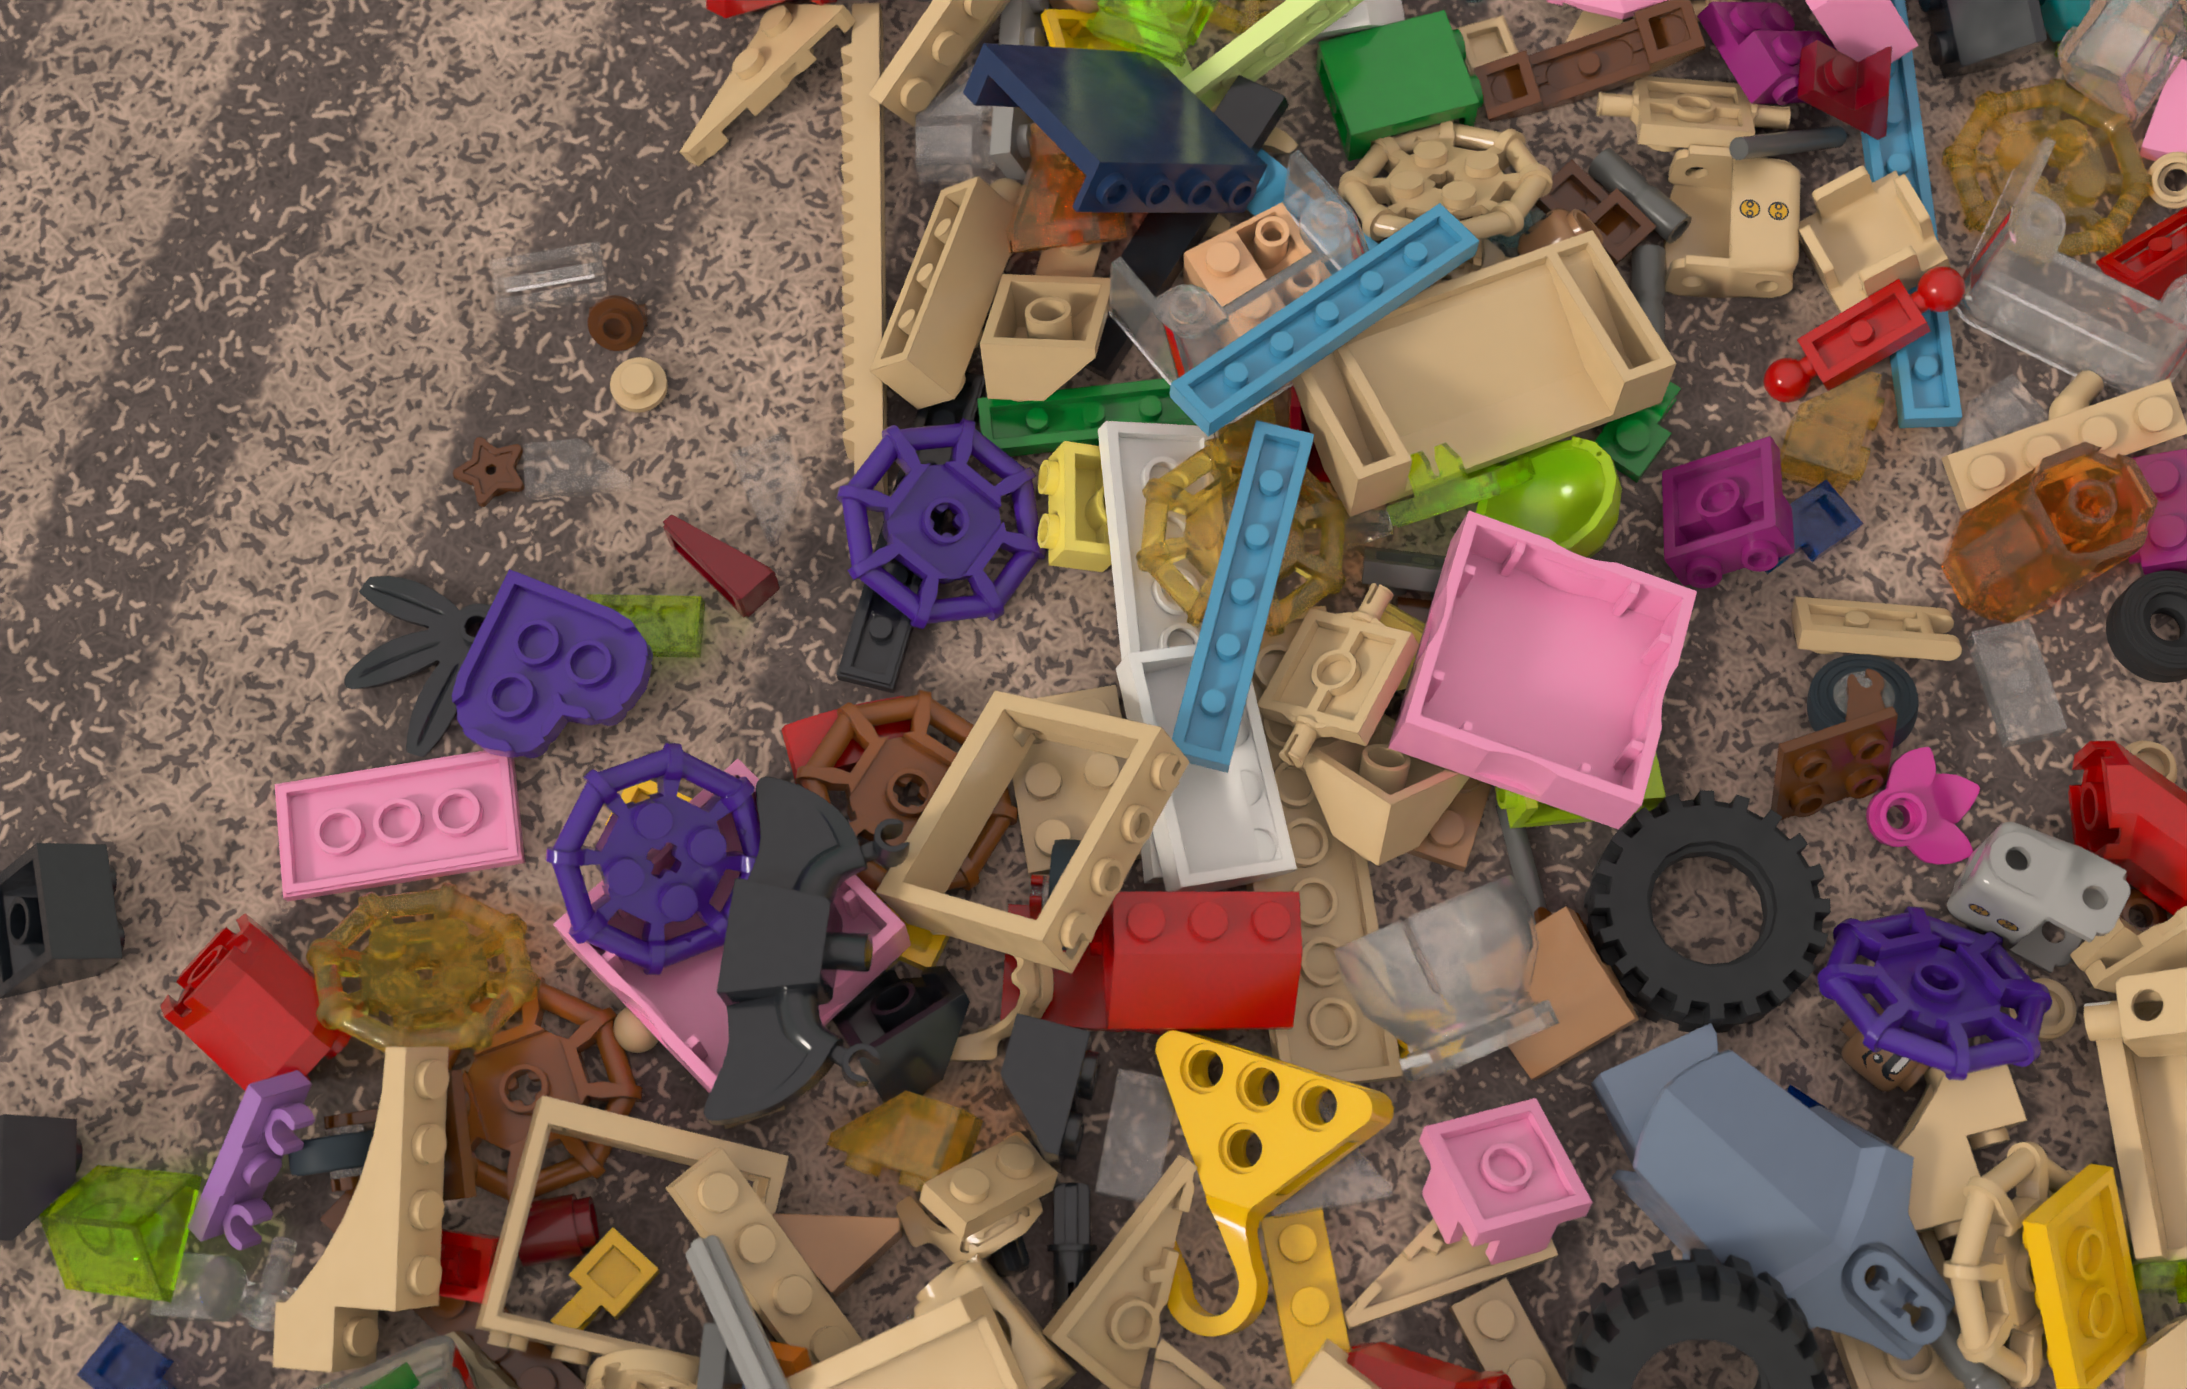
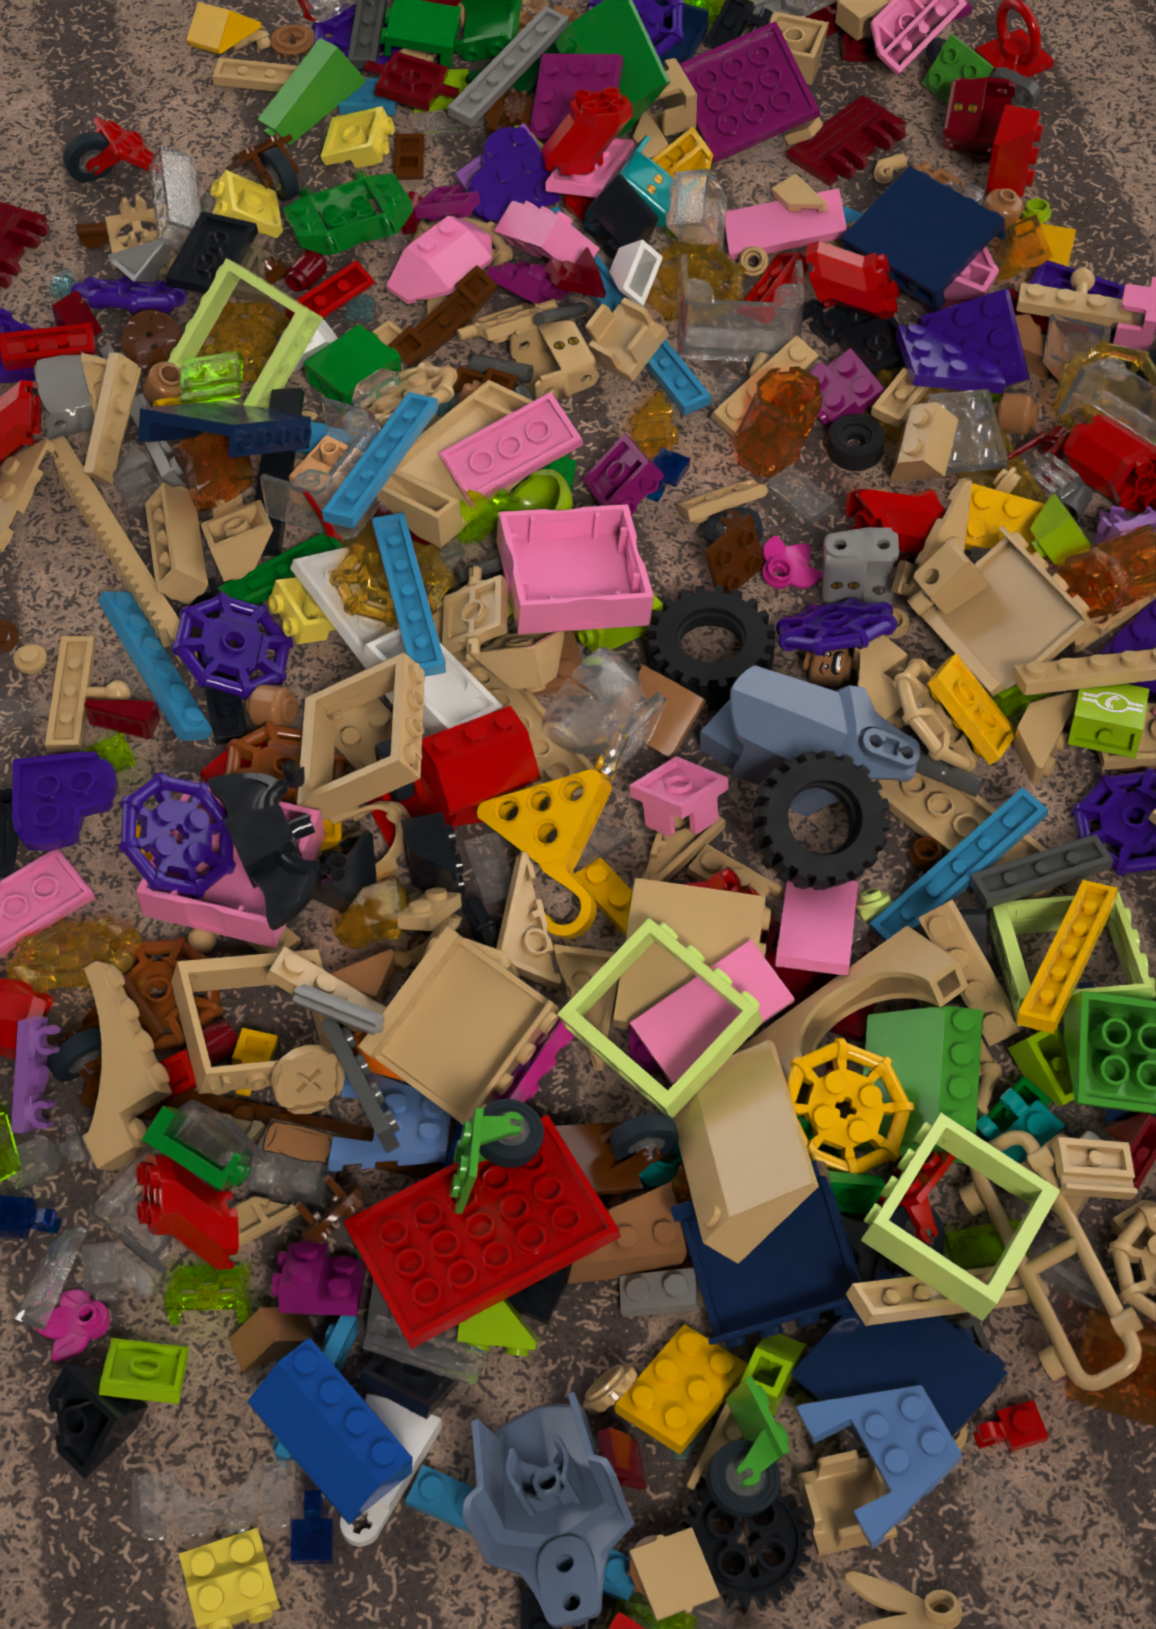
camera: 30 degrees left, 15 degrees down
(669, 481) = (72, 690): none -> tan plate
(810, 509) = (155, 666): none -> dark azure plate
(950, 662) = (272, 705): none -> medium nougat head
(1403, 147) = (374, 387): none -> clear tile
(1557, 390) = (511, 448): none -> bright pink tile
(1864, 334) = (644, 378): red plate -> none
(1956, 117) = (635, 270): none -> white slope

